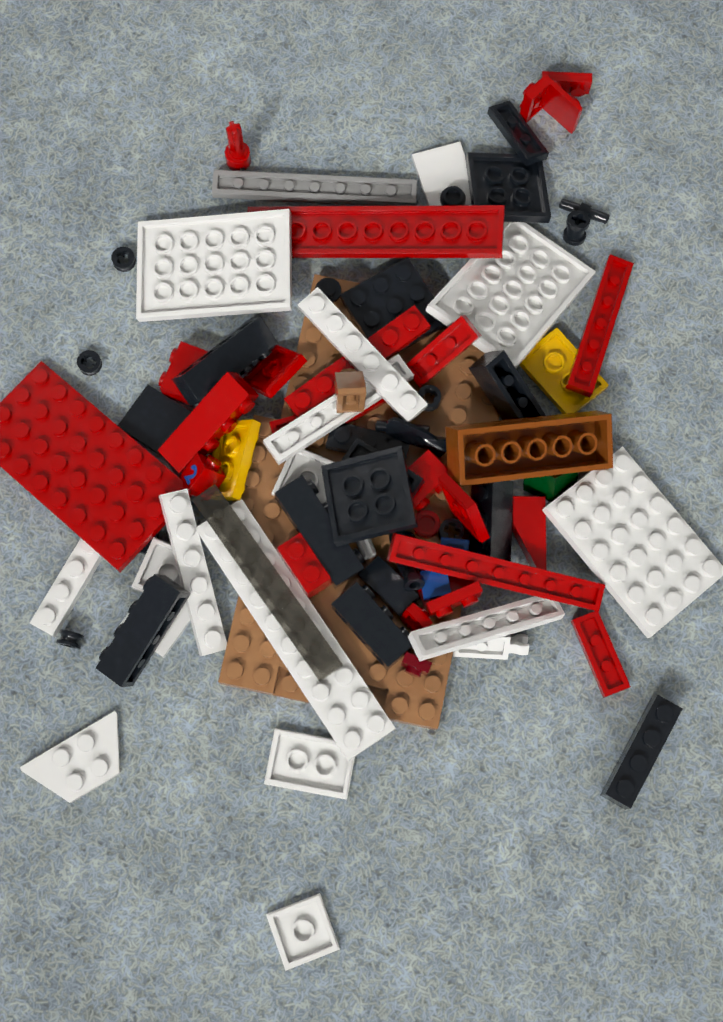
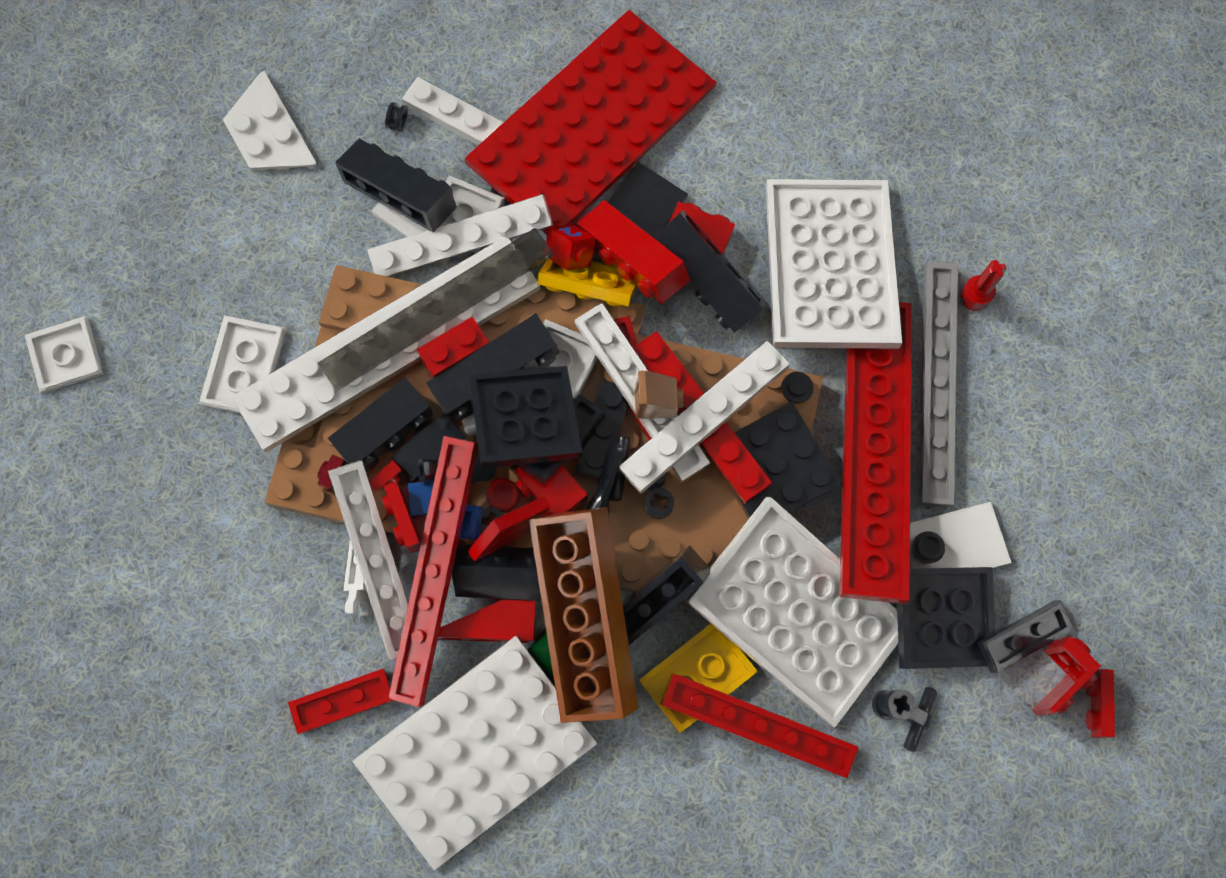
camera: 90 degrees right, 0 degrees up
(83, 368) = (706, 128): black bush -> none
(121, 251) = (839, 158): black bush -> none
(274, 371) = (698, 328): red tile -> none
(443, 350) = (712, 515): red plate -> none
(641, 752) = (217, 741): black brick -> none

